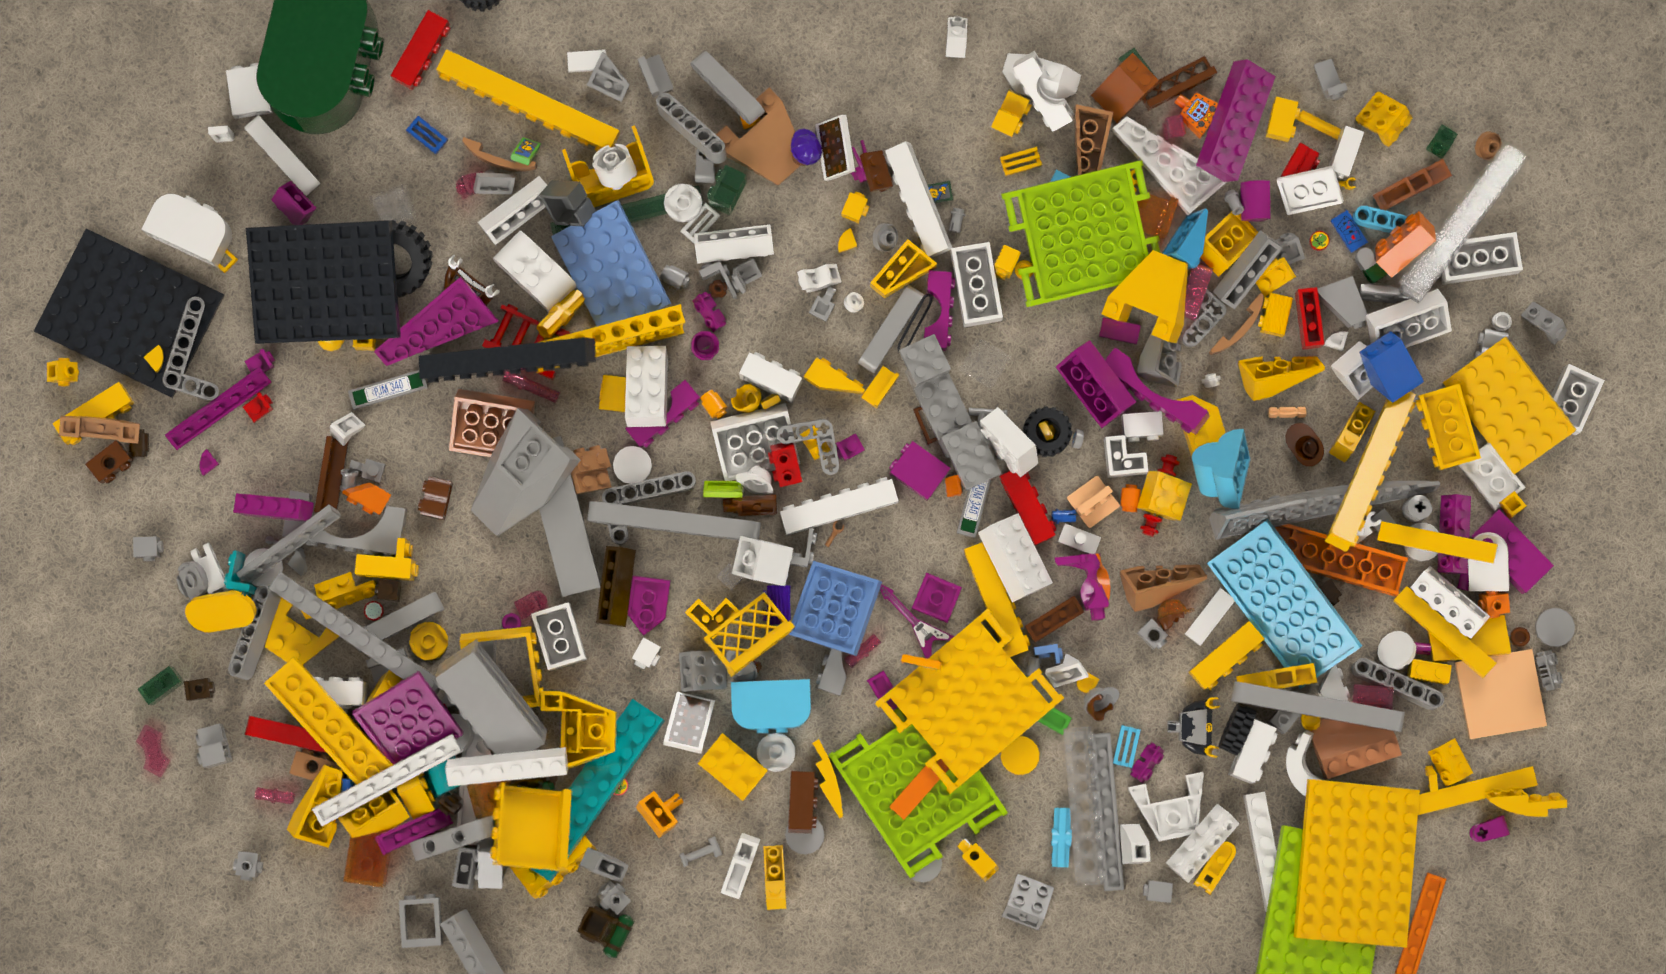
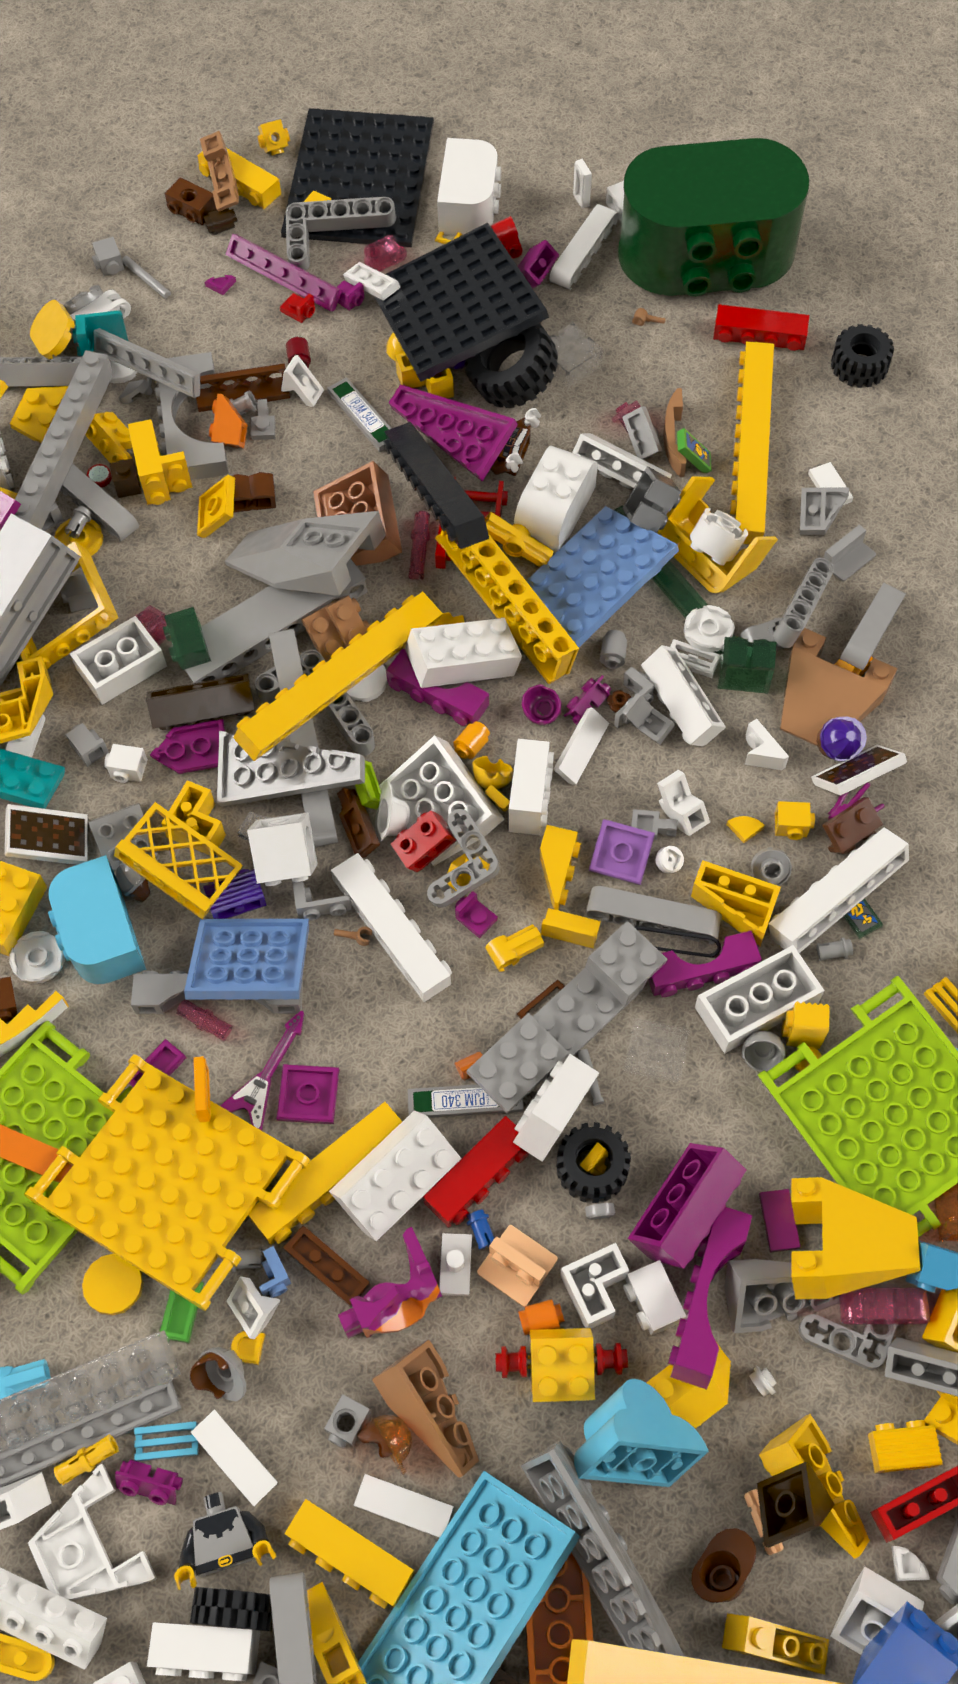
camera: 75 degrees right, 20 degrees down
(177, 521) = (146, 277): none -> light grey bar
(228, 317) = (382, 253): none -> clear pink piece
(256, 216) = (508, 235): none -> red piece
(258, 339) = (372, 280): none -> white tile
(273, 507) = (184, 337): magenta brick -> none
(311, 421) = (300, 347): none -> dark red brick
(371, 139) = (641, 316): none -> medium nougat hand
(419, 636) = (80, 517): none -> light grey pin
(439, 144) = (663, 378): blue tile -> none
(444, 528) = (216, 506): none -> yellow plate
(511, 621) = (125, 611): magenta tile -> none
(566, 581) = (187, 638): none -> clear green brick
(619, 678) = (86, 744): none -> light grey brick
(640, 479) = (334, 677): none -> yellow brick
(694, 553) = (282, 771): none -> light grey wing
(745, 329) = (581, 746): none -> white tile
(797, 201) = (766, 750): none -> white slope
(838, 332) = (621, 852): none -> medium lavender plate
(882, 432) = (510, 949): none -> yellow piece
(919, 470) = (475, 1010): magenta brick -> none
(1011, 296) = (763, 1050): none -> light grey hair
(1122, 796) = (86, 1459): none -> yellow pin
(1151, 707) = (234, 1457): none -> white slope
(1254, 310) = (824, 1378): medium nougat slope -> none
(1287, 393) = (792, 1504): none -> dark brown slope

